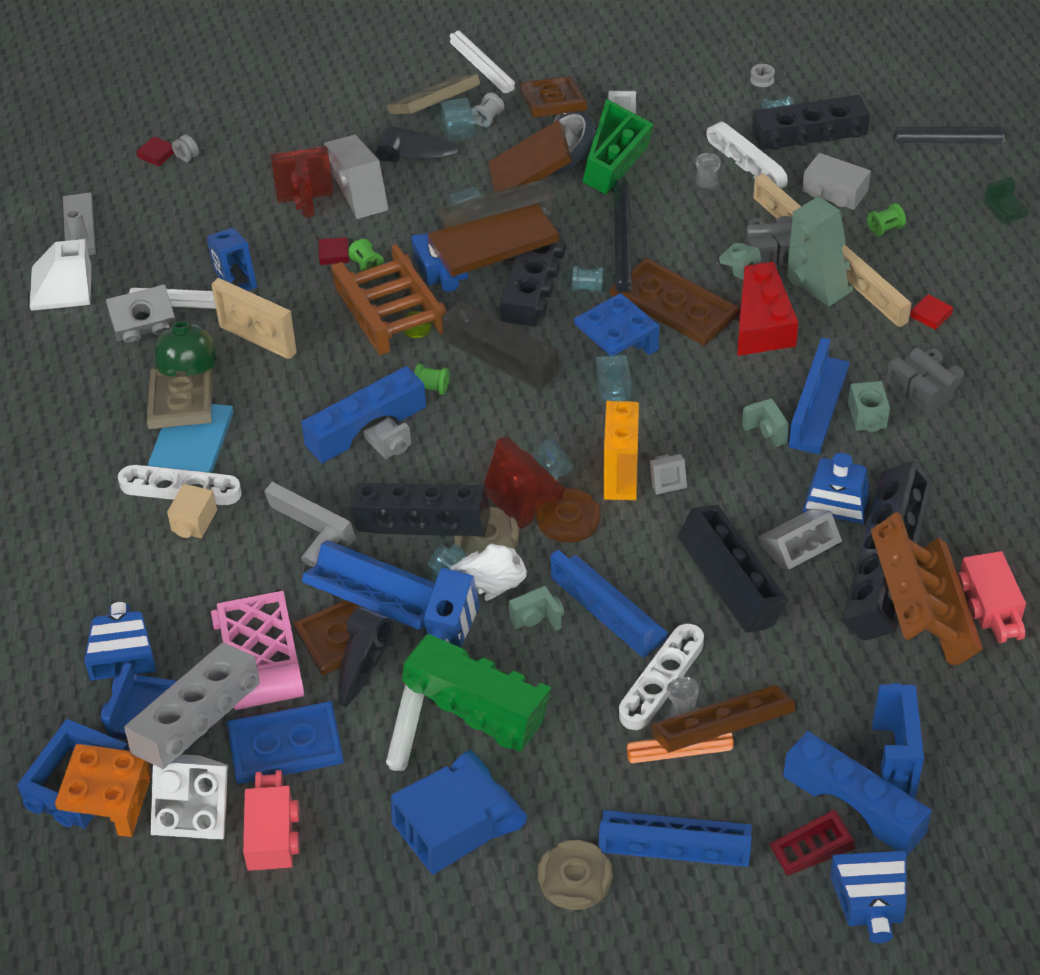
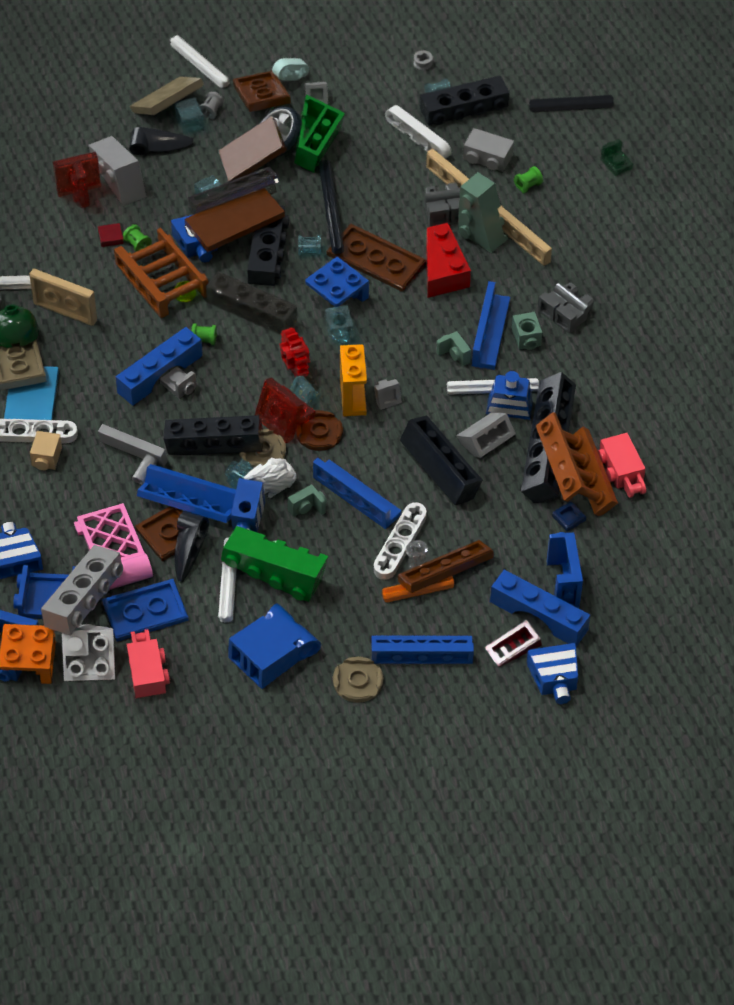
camera: 10 degrees left, 5 degrees up
(229, 249) = (33, 239): blue torso -> none
(547, 409) = (294, 352): none -> red gear
(595, 69) = (290, 69): none -> light aqua beam
(707, 170) = (389, 147): clear bush -> none
(740, 256) = (422, 220): sand green bracket -> none
(796, 474) = (479, 386): none -> white axle
(909, 662) = (569, 516): none -> dark blue tile
(931, 311) = (567, 252): red tile -> none

